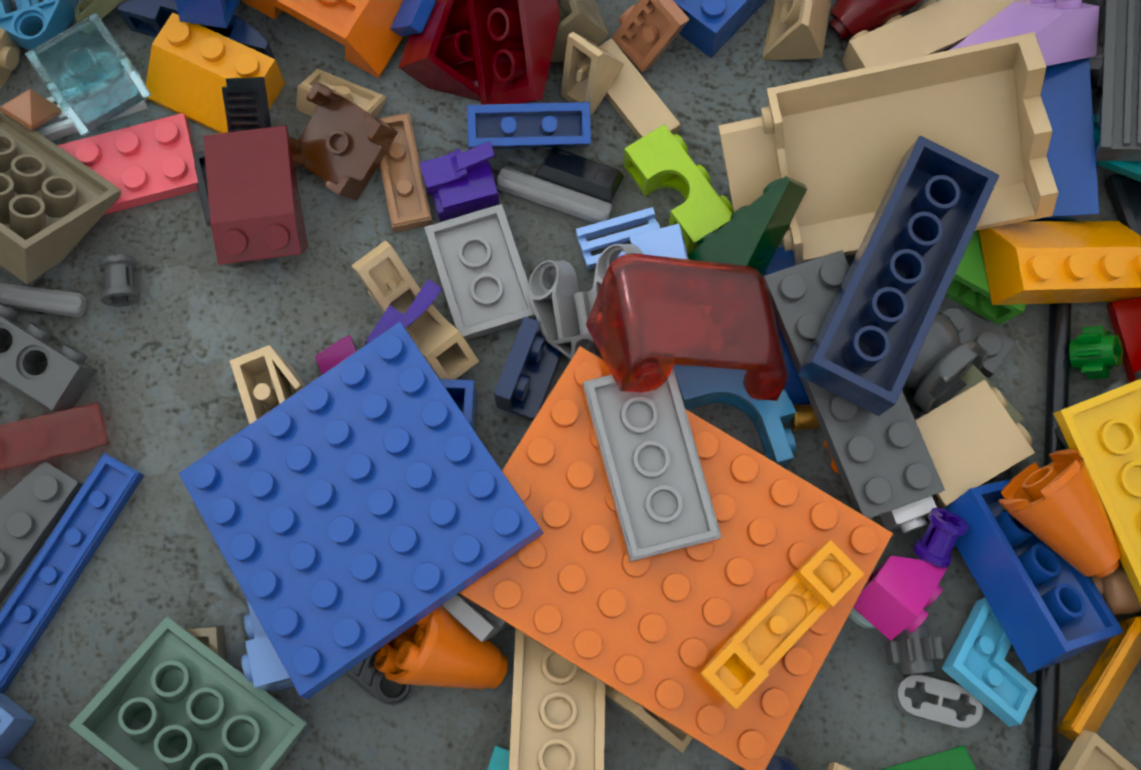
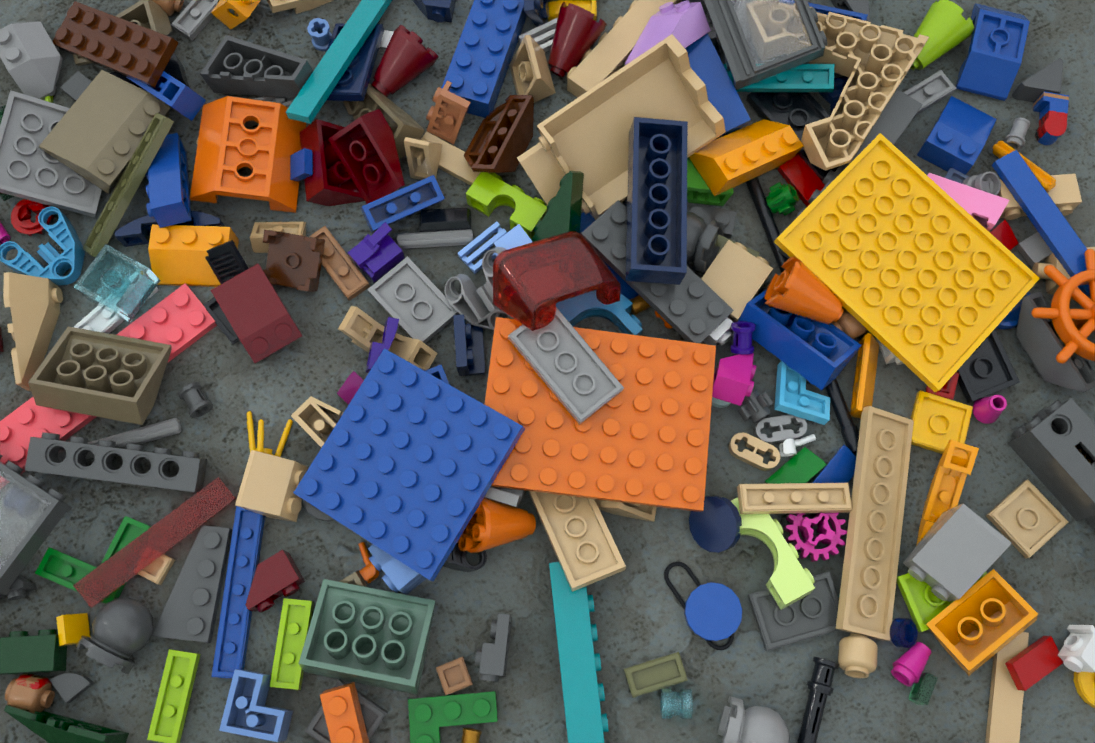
camera: 25 degrees left, 0 degrees up
(30, 109) = (89, 320): nougat slope -> none
(87, 674) = (292, 633): none -> lime plate
(100, 582) = (273, 579): none -> dark red slope
(153, 447) = (270, 486): none -> tan slope
(169, 404) = (260, 436): none -> yellow plant
(236, 634) = (369, 572): none -> orange hand
(716, 89) = (502, 136): none -> reddish brown wedge
(780, 623) = (677, 419): light orange slope -> none
(889, 710) = (751, 457): none -> tan beam
(938, 736) = (788, 447): none -> white hand

